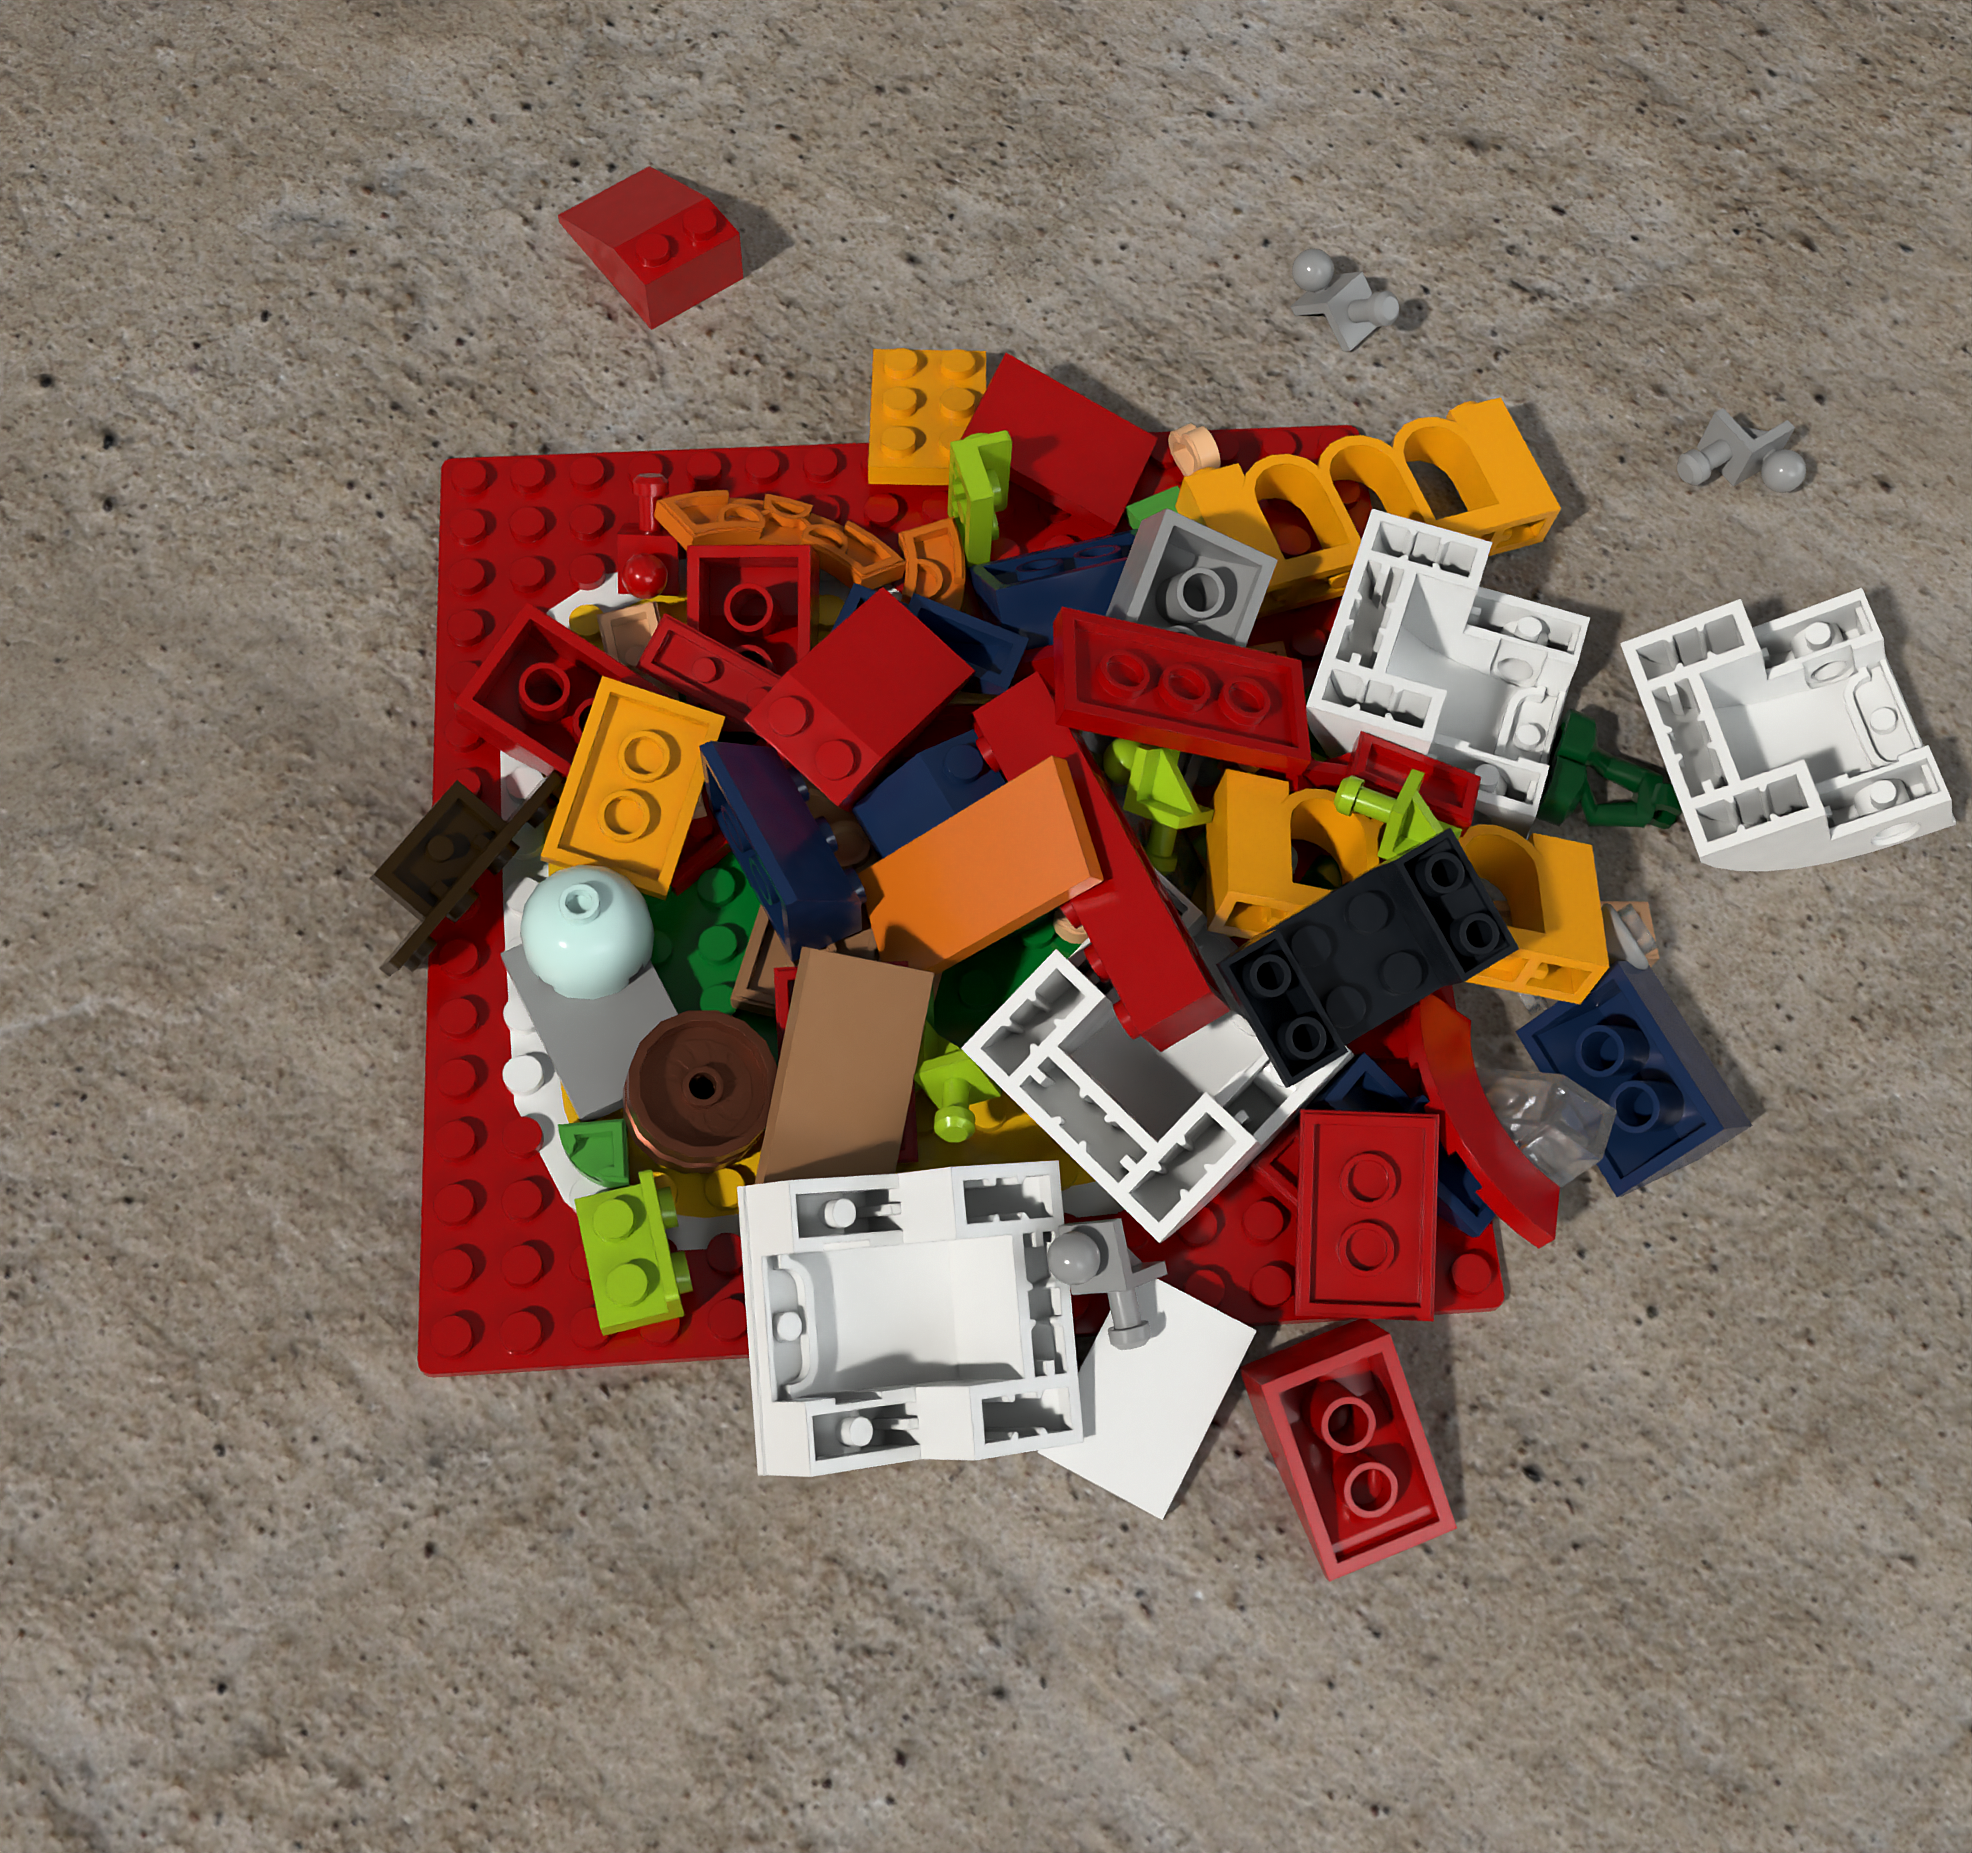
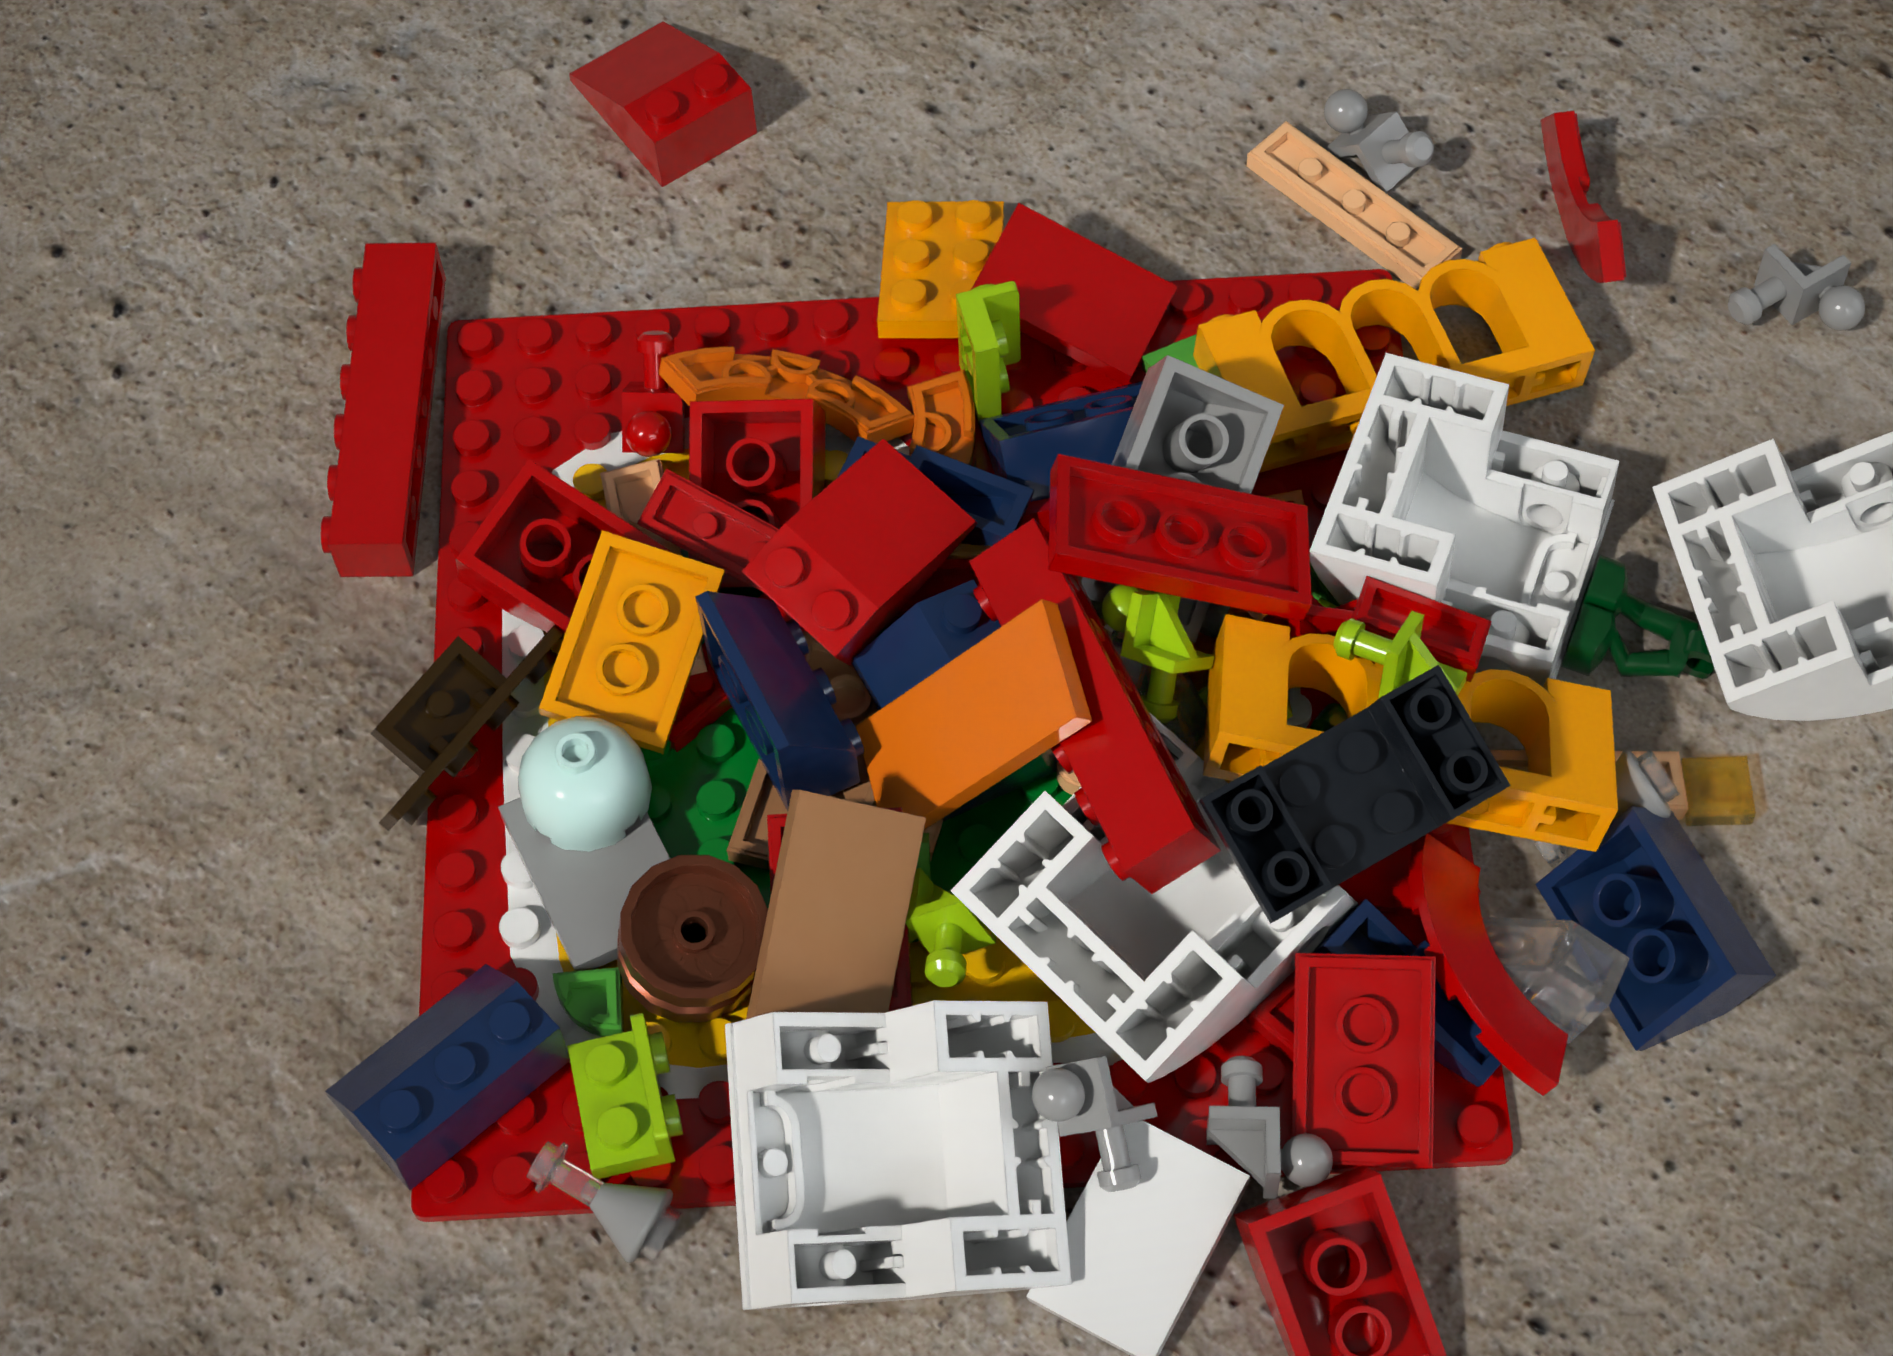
camera: 10 degrees right, 5 degrees down
(380, 549) = (385, 412): none -> red brick
(455, 1228) = (451, 1074): none -> dark blue slope
(642, 1373) = (633, 1216): none -> piece
(1193, 449) = (1212, 296): light nougat tile -> none
(1262, 1290) = (1253, 1134): none -> light grey piece
(1318, 362) = (1350, 205): none -> light nougat tile
(1547, 394) = (1589, 230): none -> red tile
(1686, 940) = (1718, 791): none -> clear yellow tile

